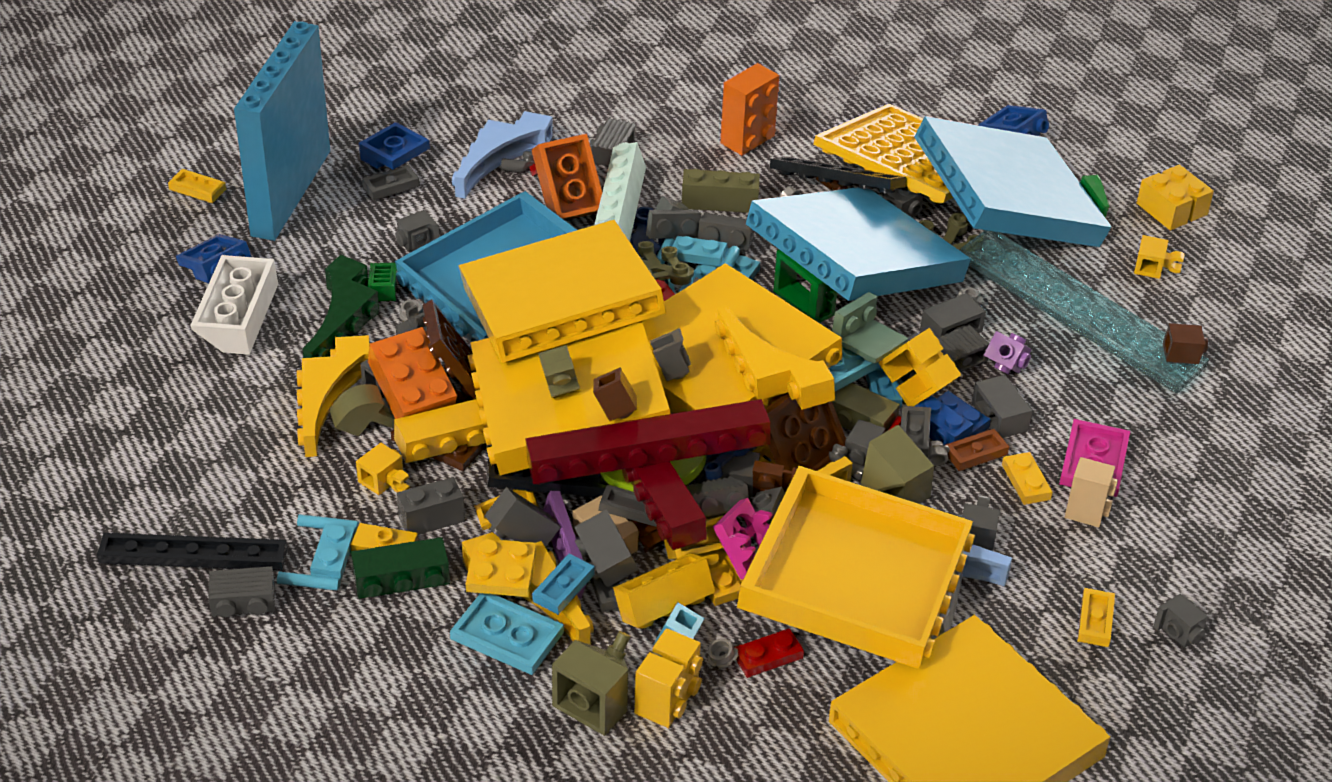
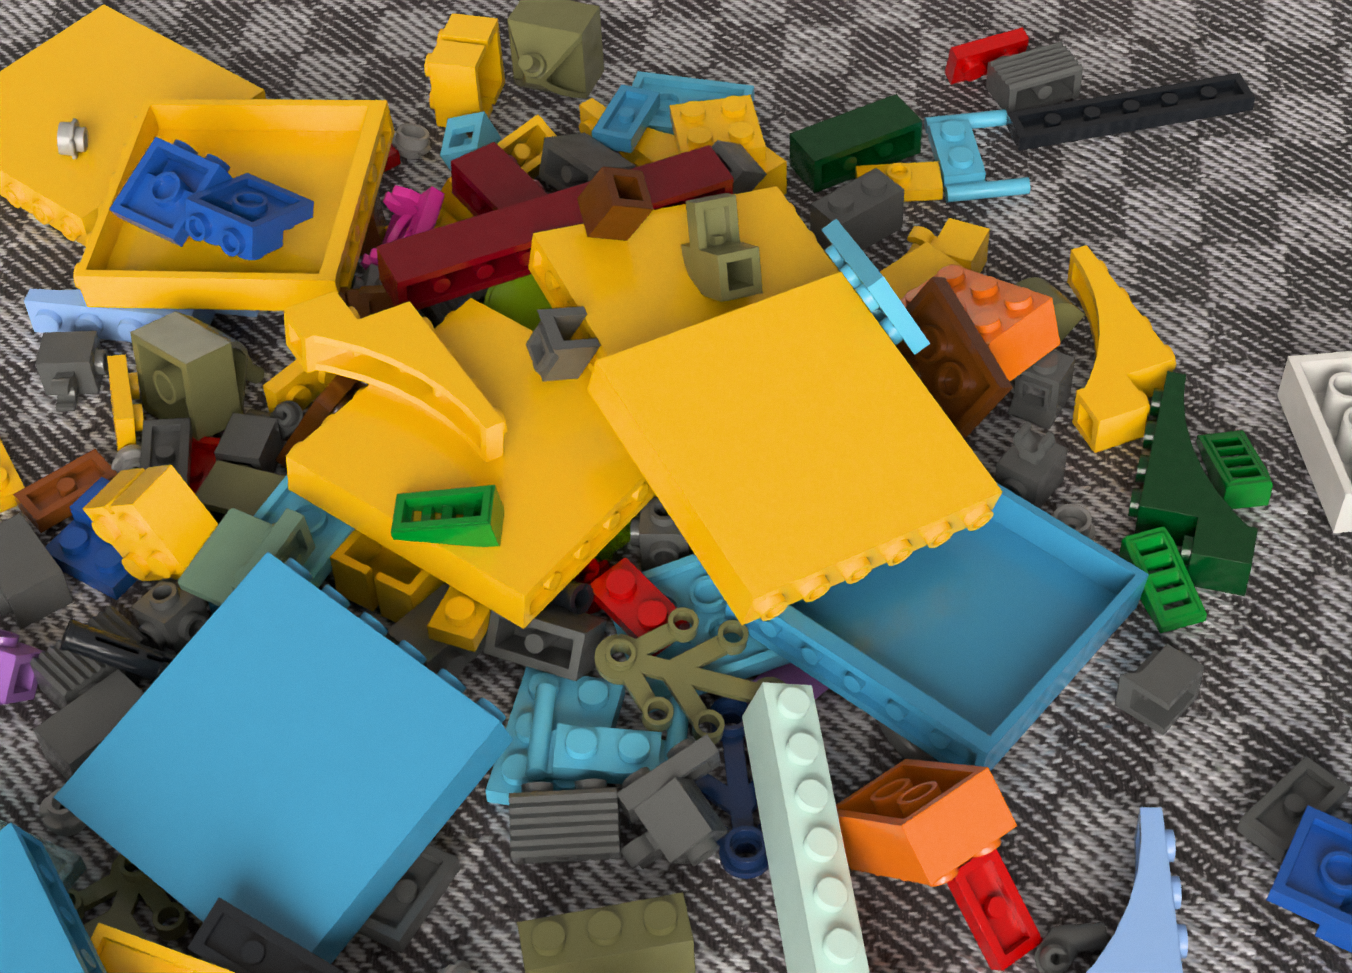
camera: 170 degrees right, 5 degrees up
(262, 618) = (971, 59): none -> red plate
(304, 318) = (1237, 492): none -> green slope
(476, 345) = (873, 288): none -> medium azure plate
(756, 290) = (477, 528): none -> green slope
(852, 506) = (245, 215): none -> blue plate
(901, 540) = (160, 184): none -> blue plate
(939, 327) = (115, 650): none -> black pin
(941, 480) = (124, 389): none -> yellow plate
(983, 669) = (71, 138): none -> light grey plate

